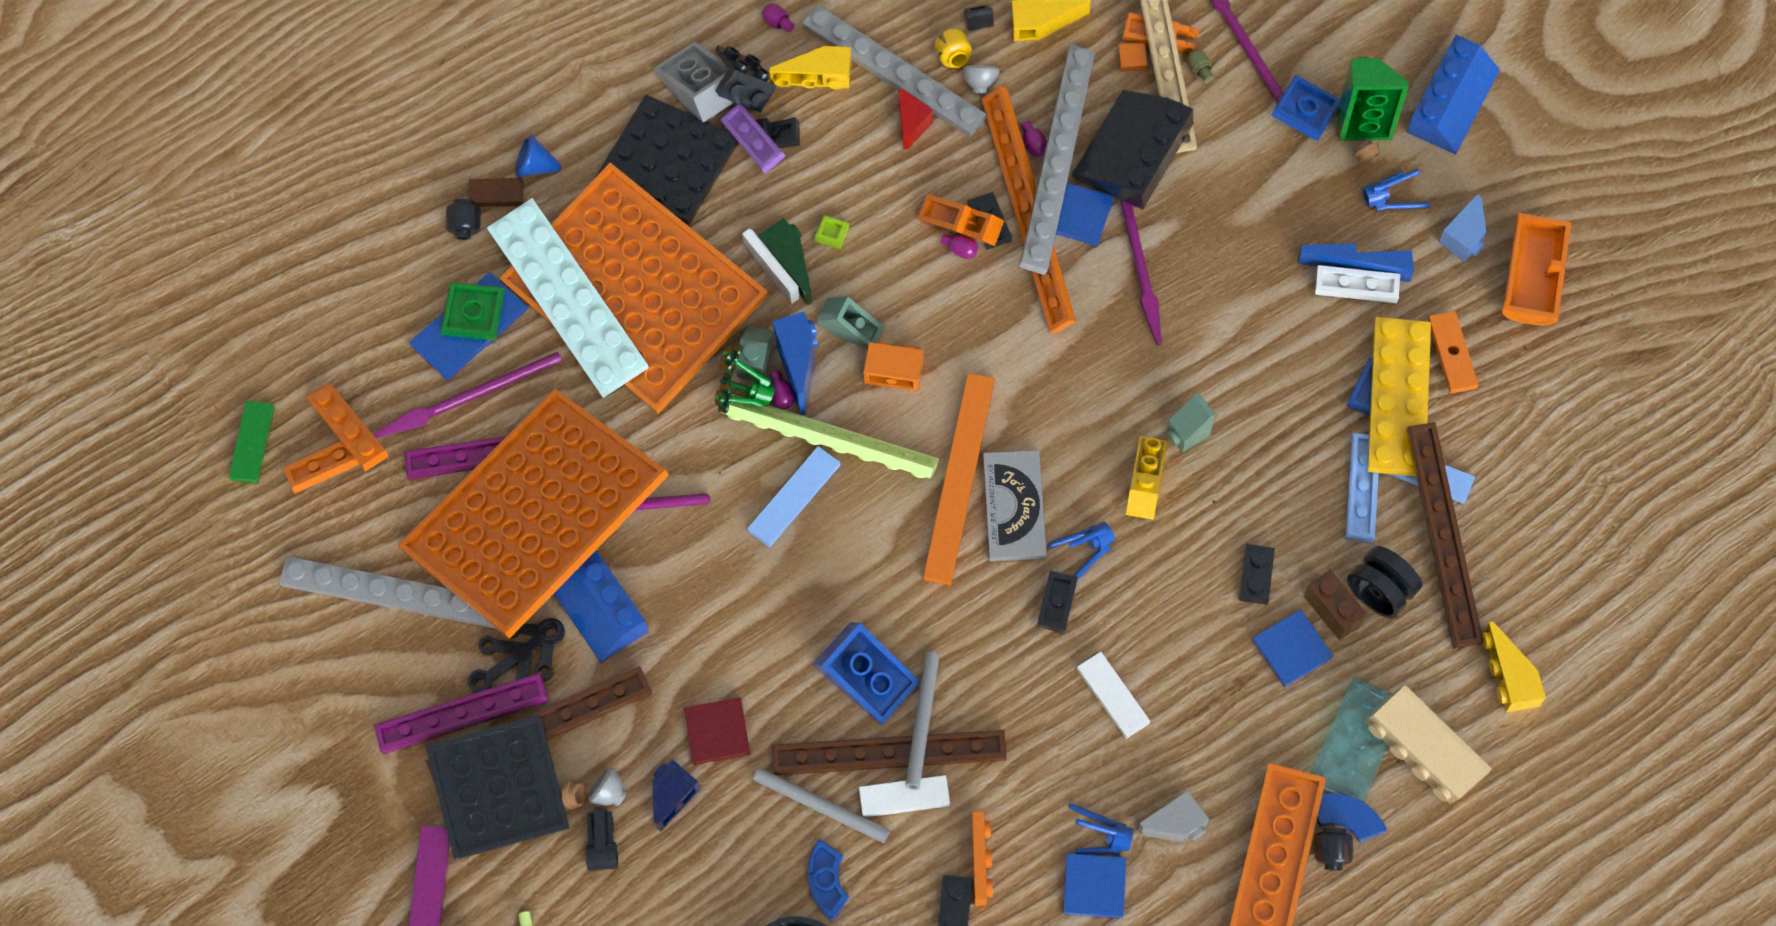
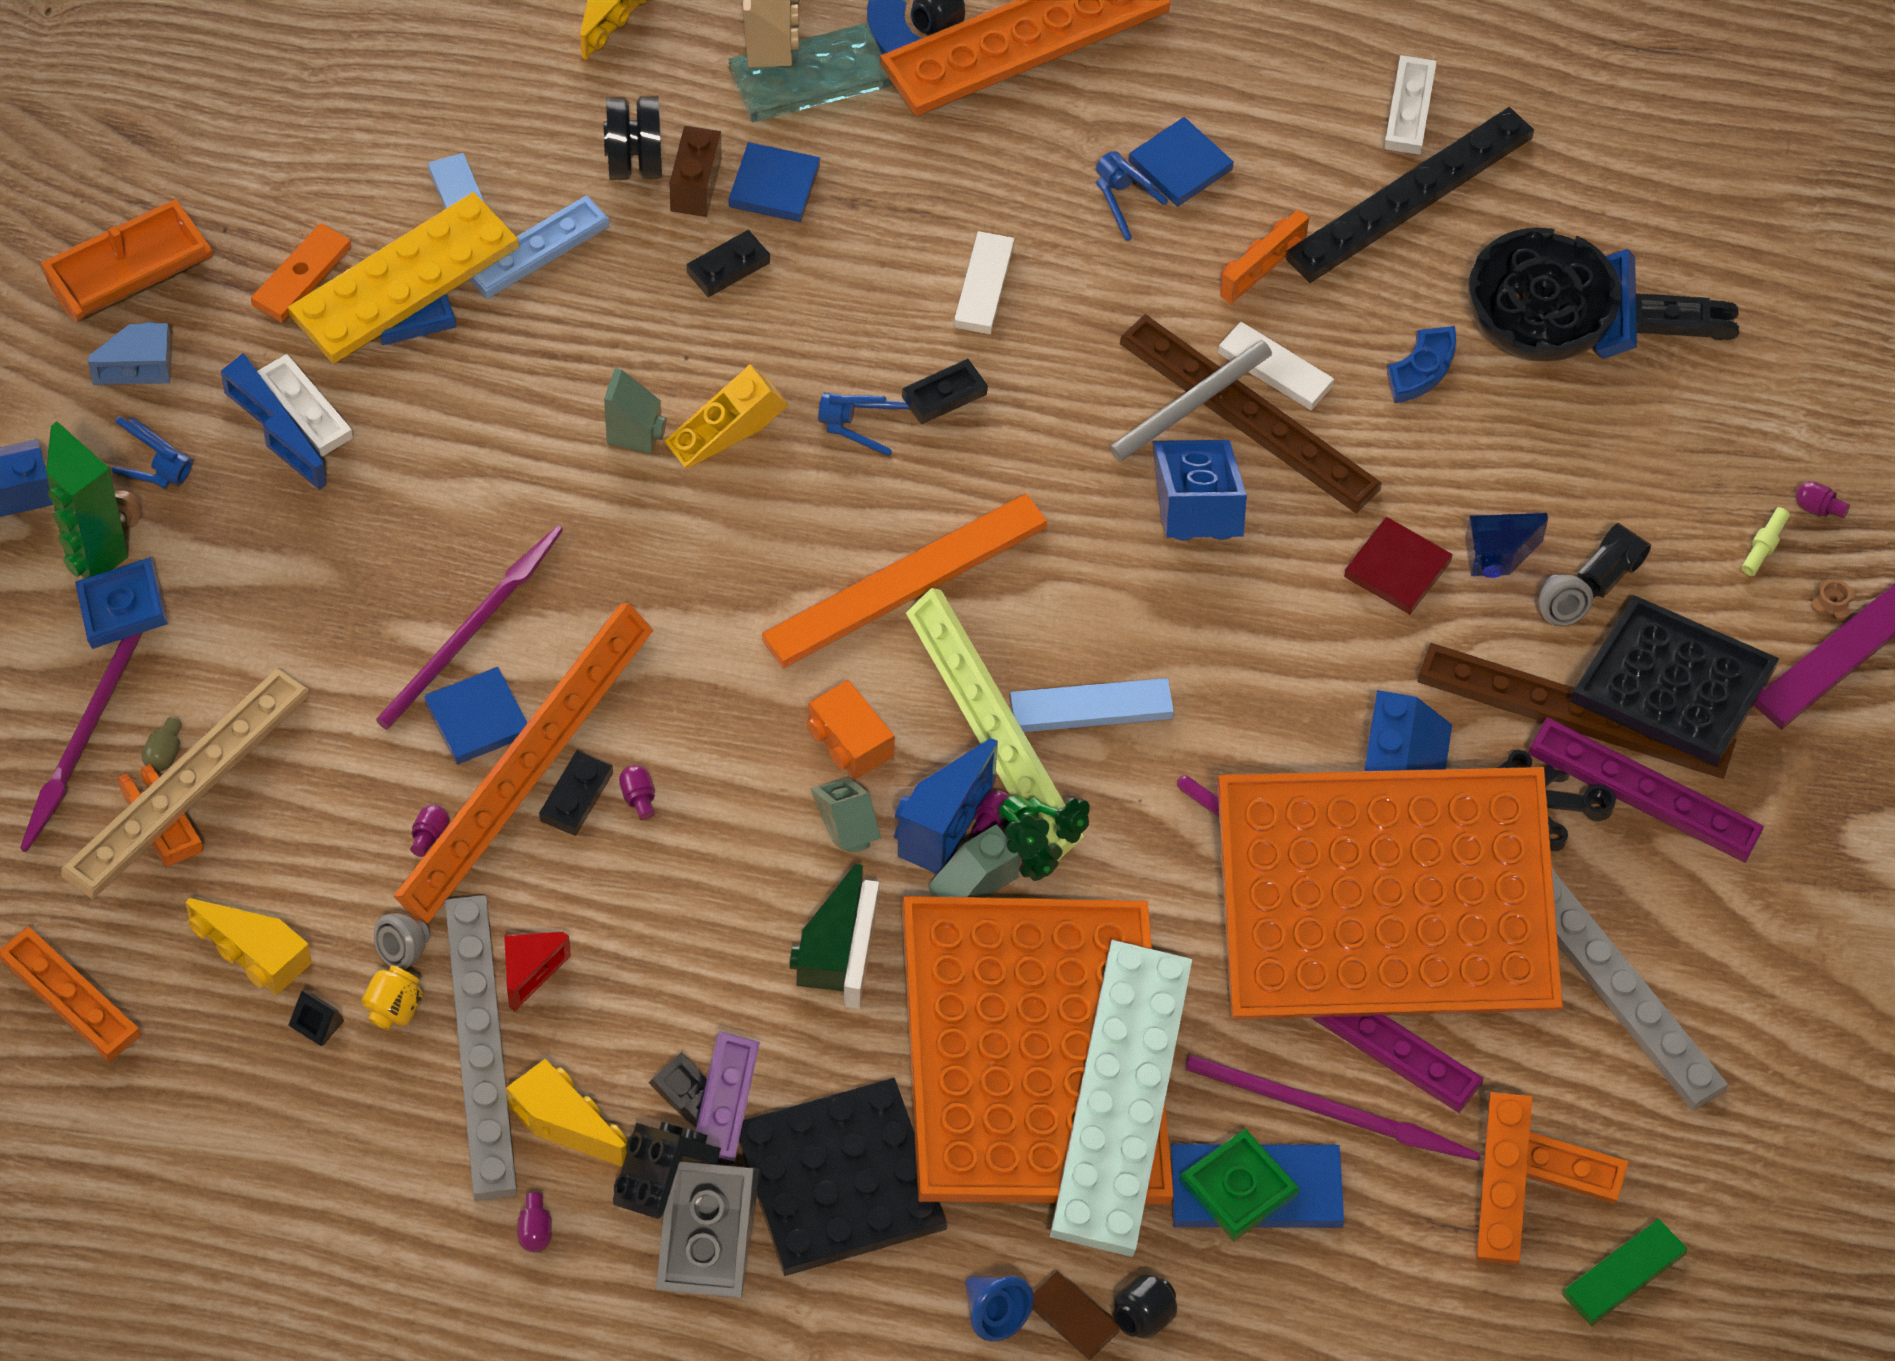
camera: 140 degrees left, 10 degrees down
(573, 794) = (1602, 621): medium nougat plate -> none
(821, 805) = (1363, 423): light grey piece -> none
(831, 232) = (752, 931): lime tile -> none
(961, 219) = (611, 805): orange slope -> none
(1014, 505) = (881, 510): light grey tile -> none
(1057, 160) = (434, 772): light grey plate -> none
(1132, 57) = (216, 822): orange tile -> none
(1135, 146) = (346, 709): black slope -> none
(1176, 821) = (1052, 141): light grey slope -> none
(1444, 535) = (523, 136): reddish brown tile -> none

